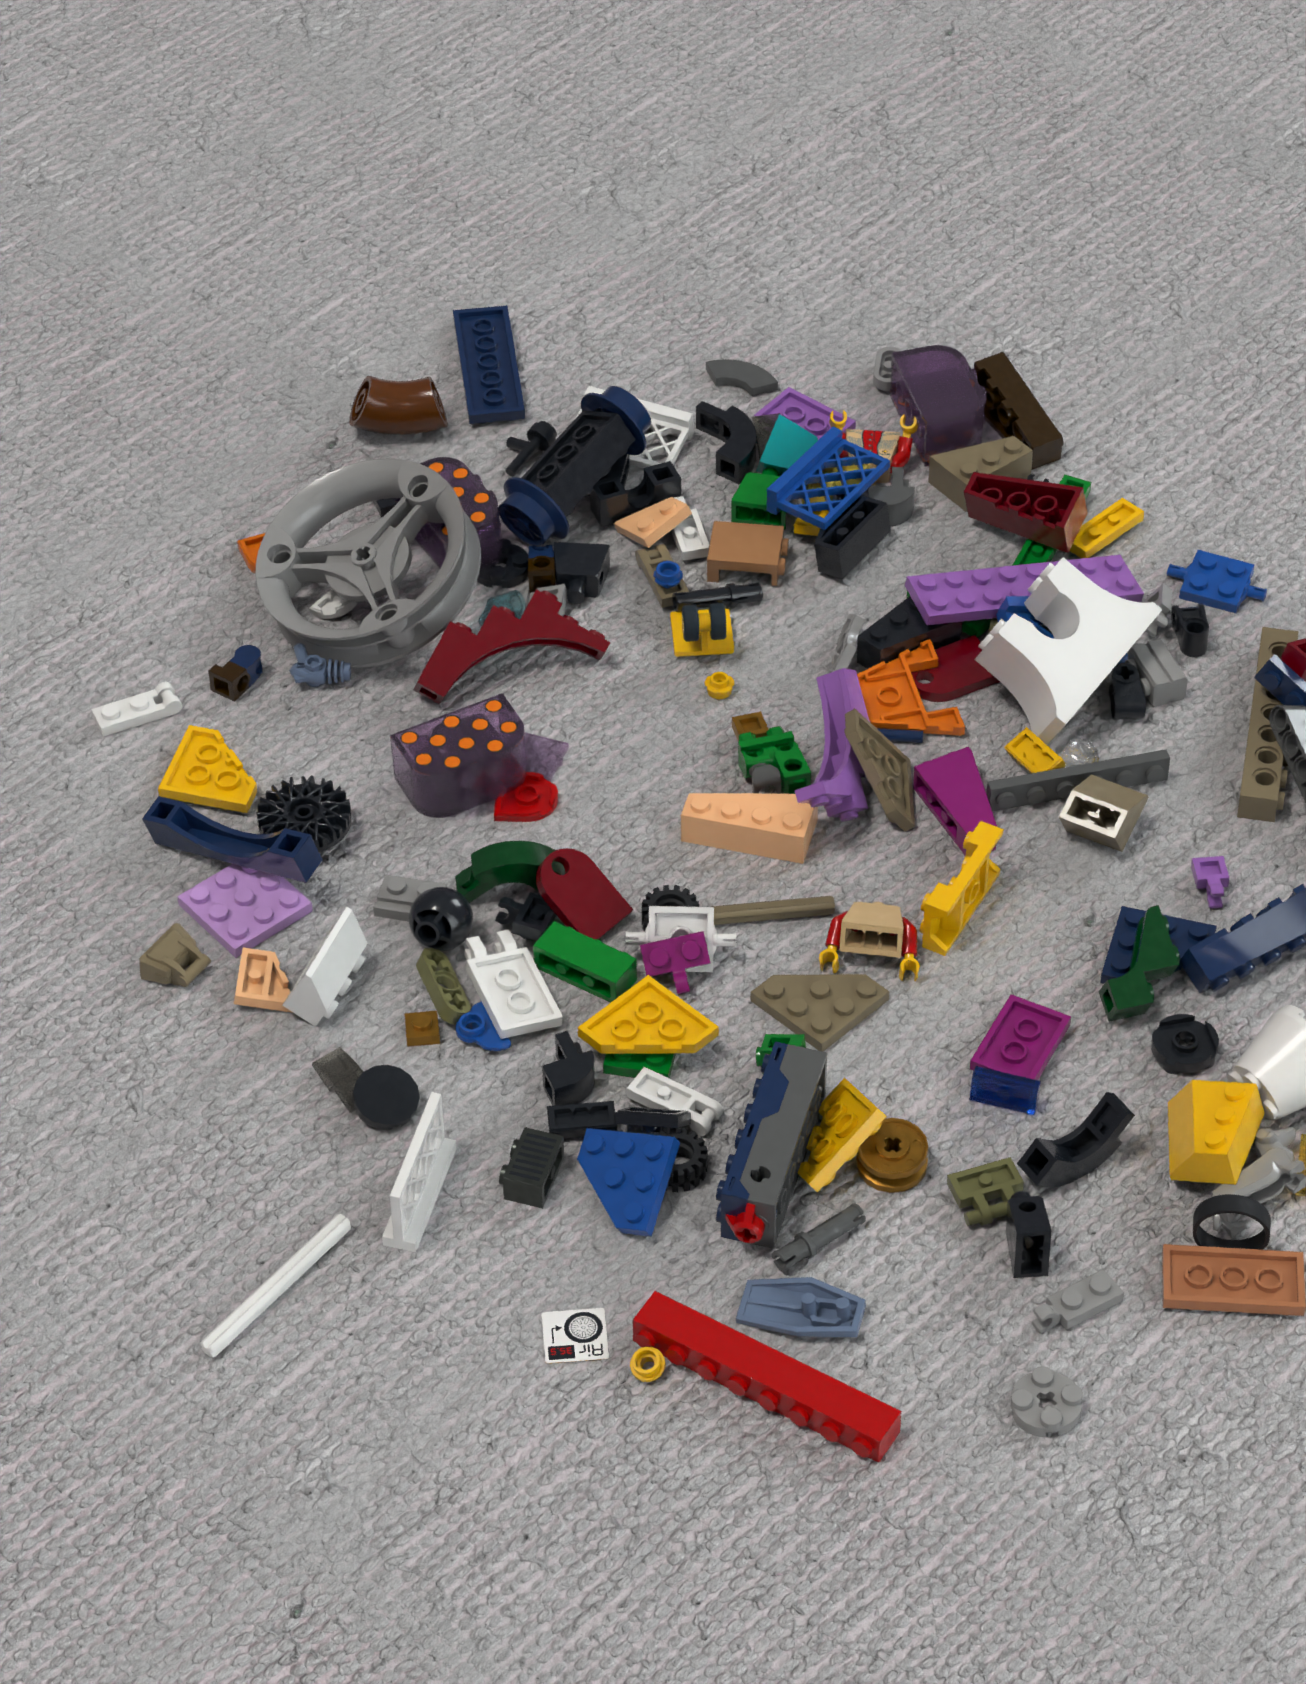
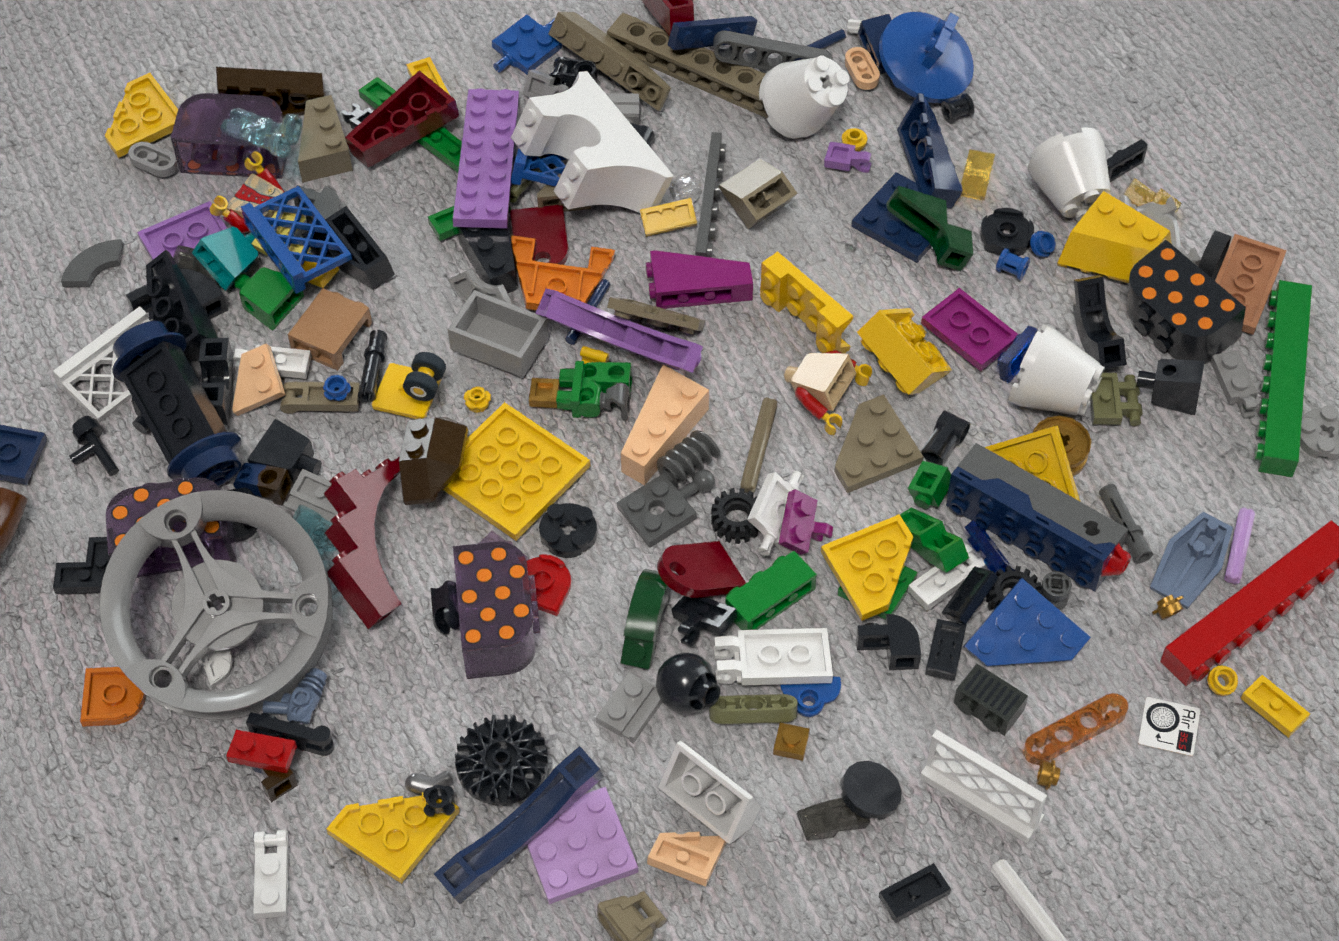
camera: 70 degrees left, 10 degrees up
(242, 784) = (437, 792): none -> black plate
(243, 652) = (261, 751): none -> red plate
(262, 775) = (419, 782): none -> flat silver arm
(279, 673) = (307, 739): none -> black plate
(285, 1160) = (914, 892): none -> black plate
(465, 1236) = (1048, 774): none -> pearl gold plate
(537, 1247) = (1073, 725): none -> clear orange beam
(579, 798) = (566, 515): none -> black plate
(620, 658) = (430, 457): none -> dark brown wedge
(633, 1417) = (1275, 706): none -> yellow plate
(642, 732) = (514, 471): none -> yellow plate
(657, 868) = (663, 493): none -> dark grey plate
(694, 1191) = (1056, 588): none -> dark grey wheel
(700, 441) = (177, 304): none -> black wedge
(708, 1069) = (933, 541): none -> green slope
(720, 856) = (687, 456): none -> dark grey piece
(721, 1295) = (1168, 606): none -> pearl gold plate
(722, 1123) = (982, 541): none -> clear blue plate
(794, 662) = (498, 333): none -> light grey piece
(812, 751) = (593, 355): none -> yellow plate
(840, 1348) = (1239, 546): none -> lavender axle
(866, 1057) = (947, 433): none -> black piece
(929, 399) = (257, 130): none -> clear light blue piece
(956, 988) = (903, 350): none -> yellow wedge
(963, 336) = (141, 116): none -> yellow plate
(971, 1106) = (1056, 375): none -> white cone
(1107, 1342) = (1284, 380): none -> green brick
(1136, 1060) = (1013, 264): none -> blue bush
(1141, 1205) = (1182, 306): none -> black brick
(1181, 1074) = (1042, 243): none -> blue plate
(1231, 637) = (610, 57): none -> dark tan slope
(1246, 881) = (855, 137): none -> yellow plate
(1249, 823) = (803, 95): none -> white cone
(1257, 995) = (977, 174): none -> clear yellow slope

